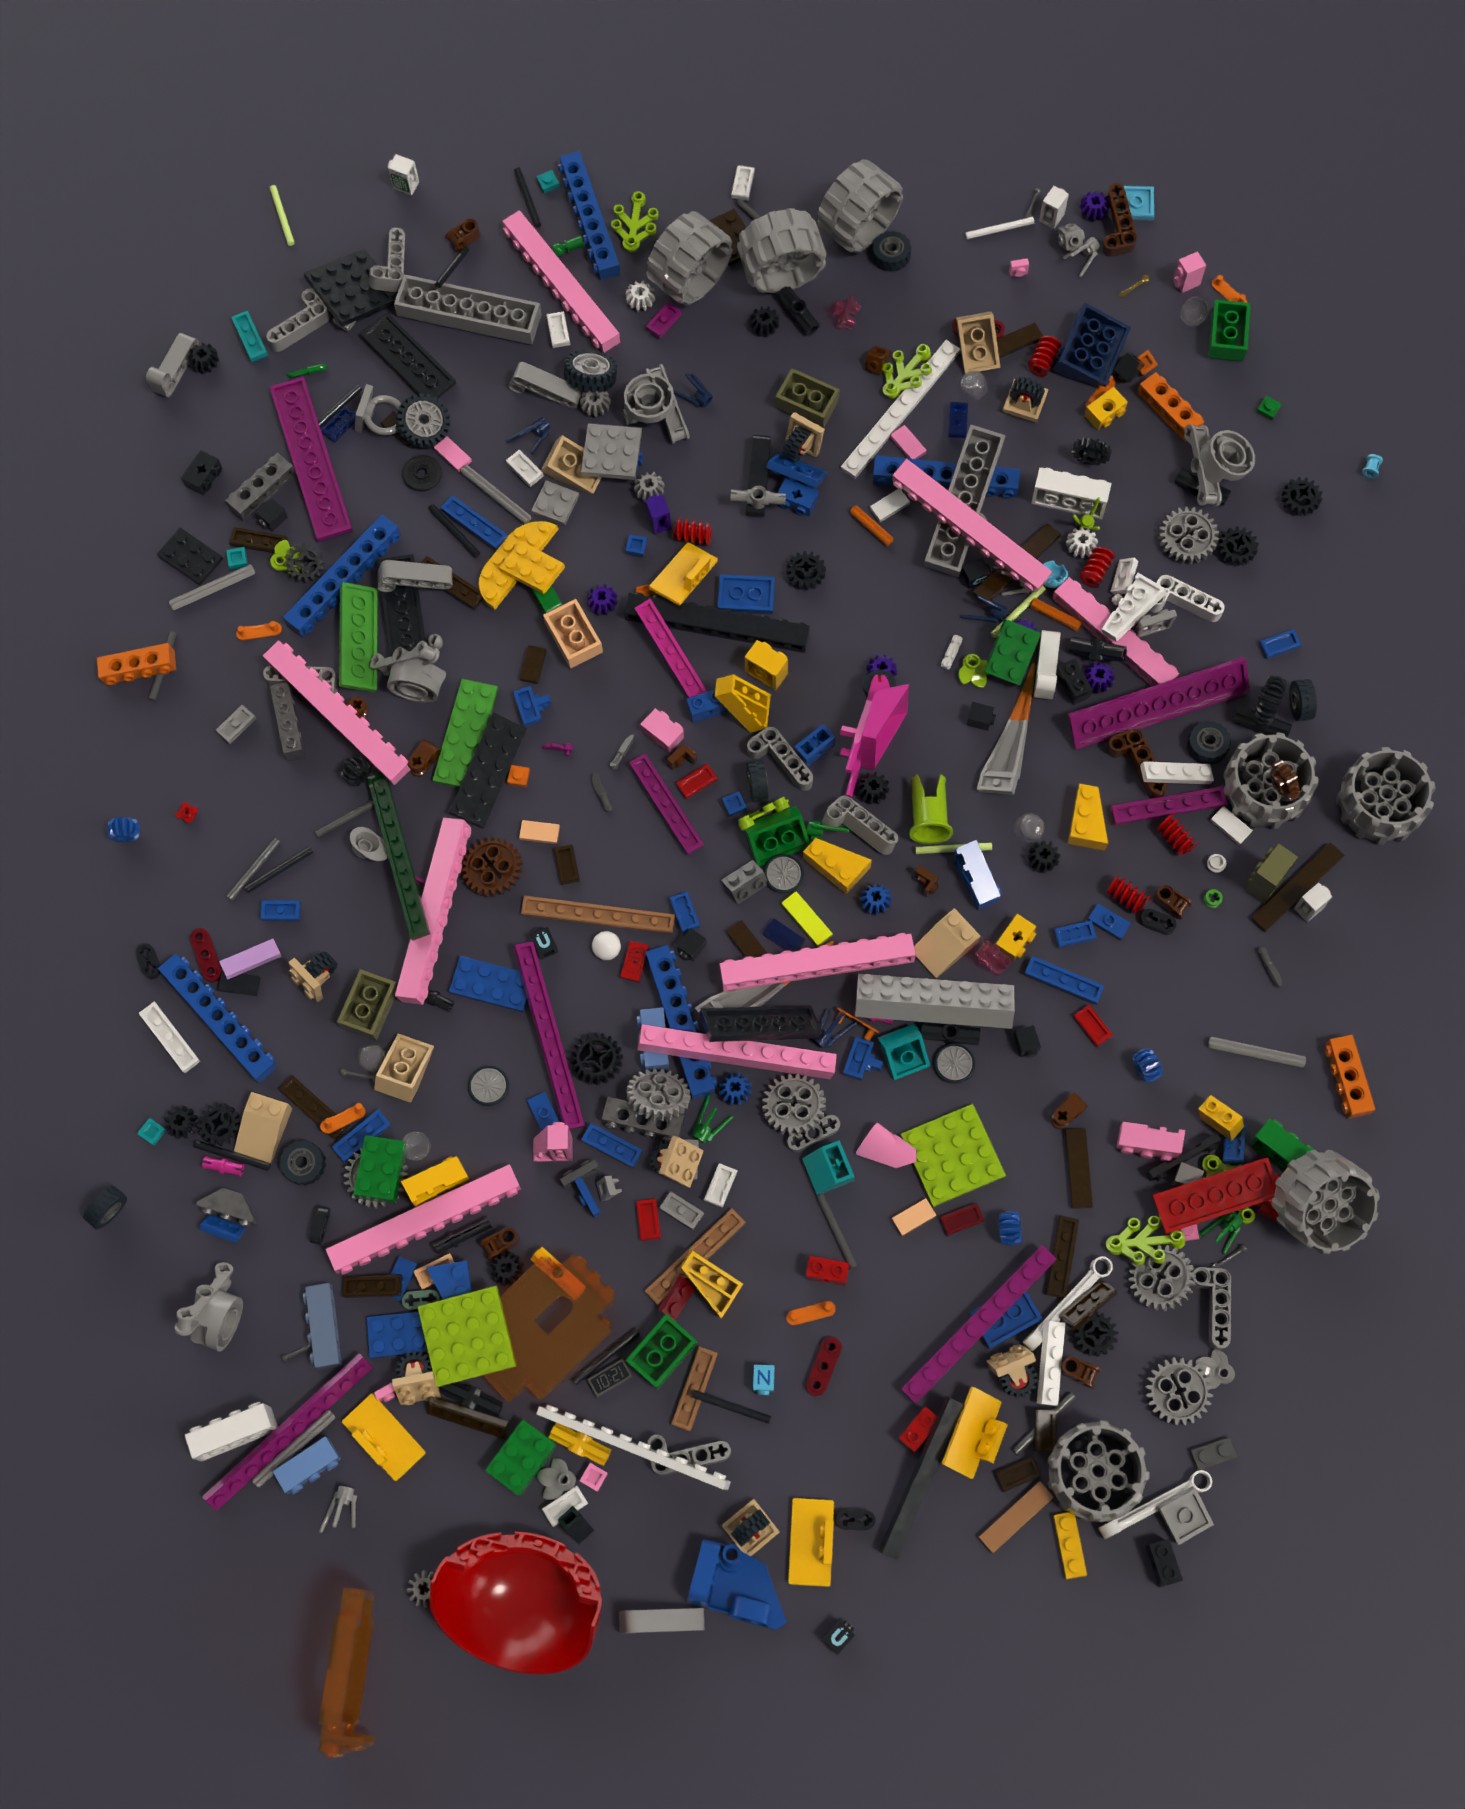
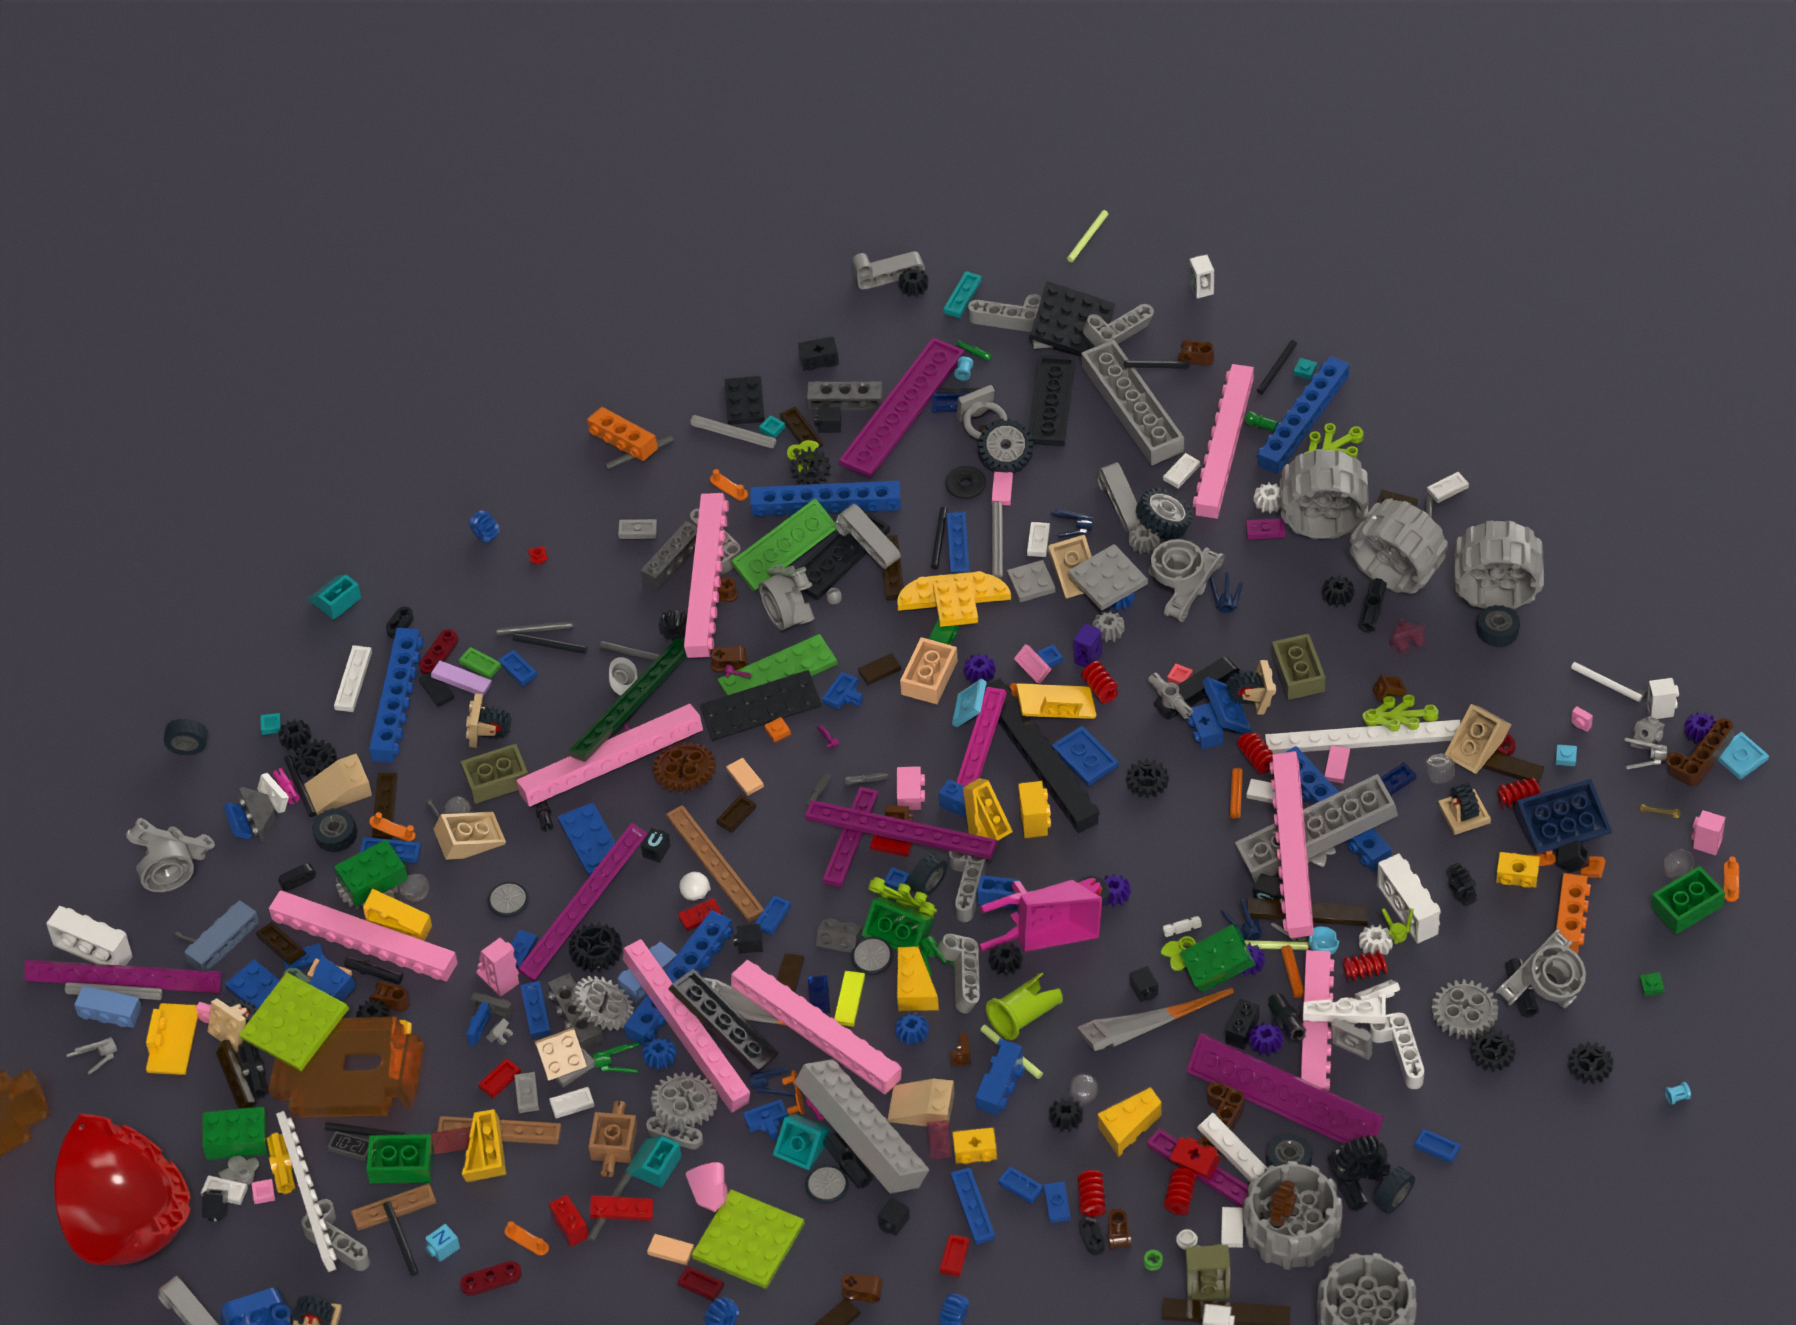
camera: 50 degrees right, 20 degrees down
(76, 988) = (336, 596): none -> teal slope
(216, 1181) = (276, 794): none -> white plate
(248, 933) = (480, 663): none -> bright green plate
(319, 390) = (963, 371): none -> medium azure bush
(436, 766) = (730, 670): none -> magenta piece
(629, 630) = (969, 703): none -> medium azure tile
(632, 561) = (1032, 663): none -> bright pink tile
(700, 766) = (901, 829): none -> magenta plate
(736, 477) = (1179, 674): none -> coral plate
(784, 1169) = (613, 1138): none -> medium nougat brick
(848, 1224) = (621, 1208): none -> red plate
(853, 483) = (1256, 751): none -> red piece
(1036, 302) = (1566, 755): none -> medium azure plate
(1046, 665) = (1221, 1005): white beam -> none
(1176, 804) = (1202, 1166): none -> red brick

